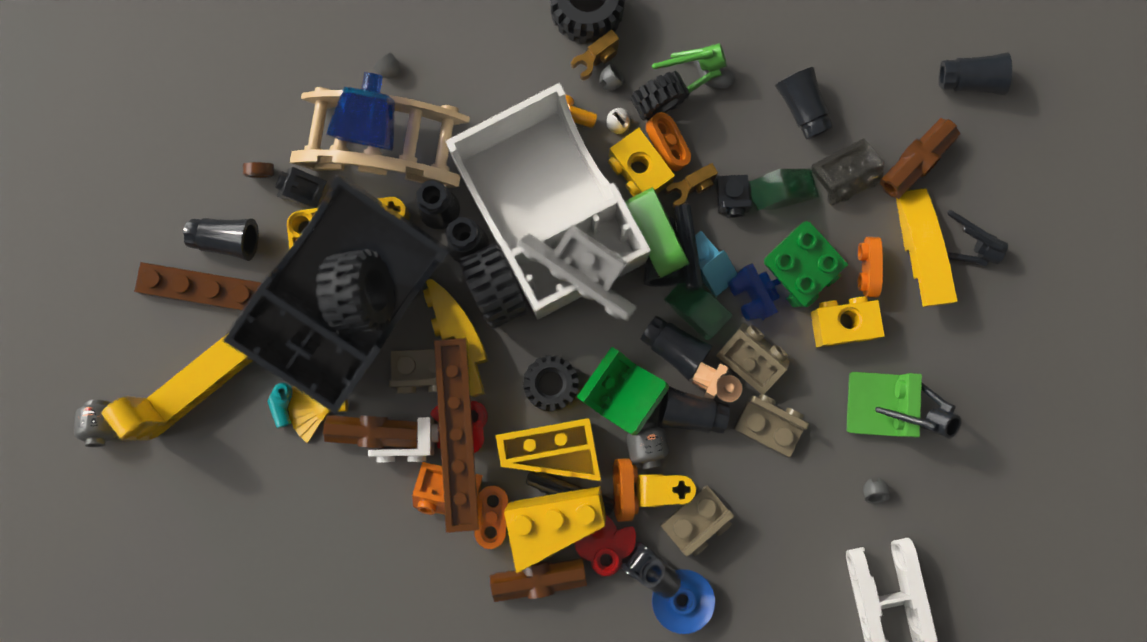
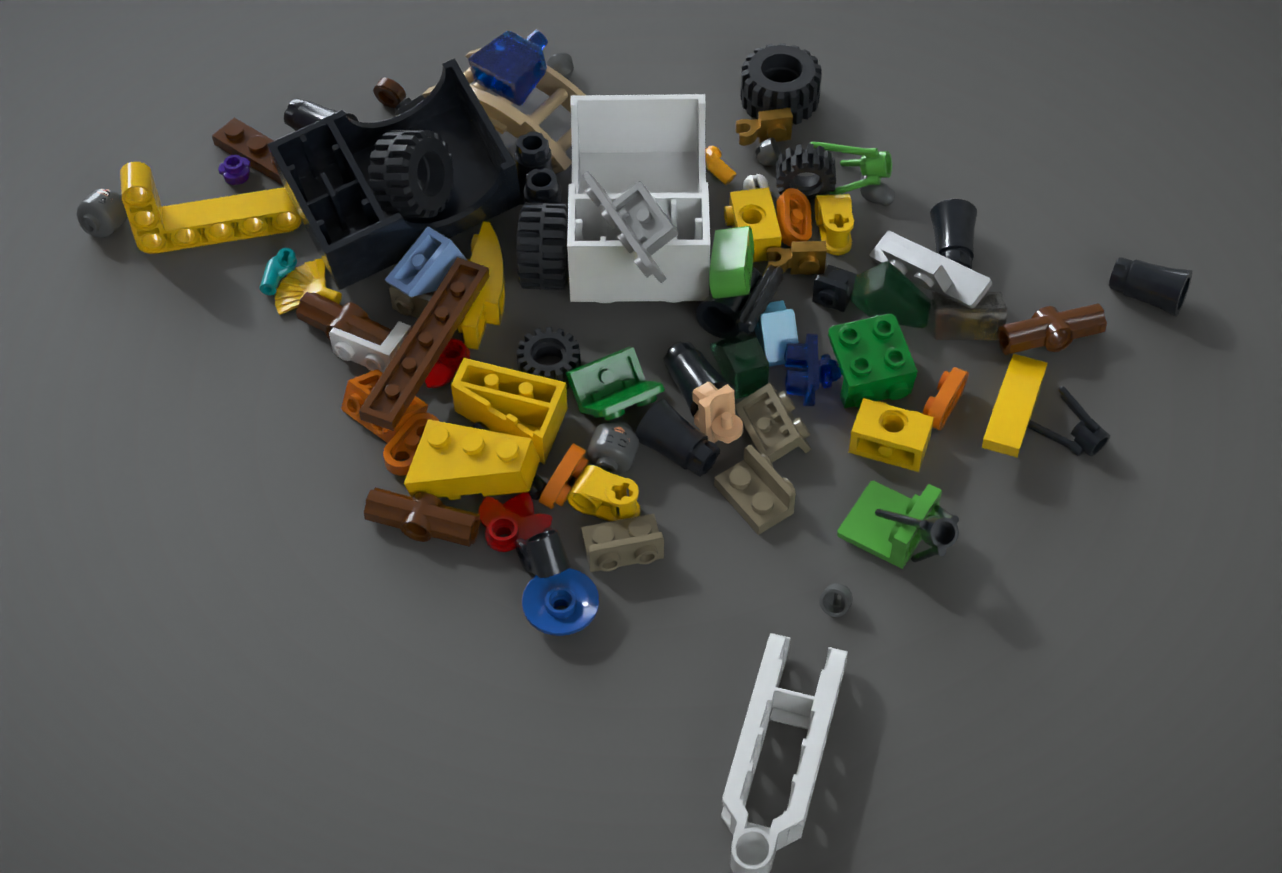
camera: 30 degrees right, 30 degrees down
(184, 315) = (235, 169): none -> dark purple plate
(410, 356) = (424, 264): none -> light blue slope
(700, 123) = (835, 222): none -> yellow piece
(804, 148) = (932, 269): none -> bracket

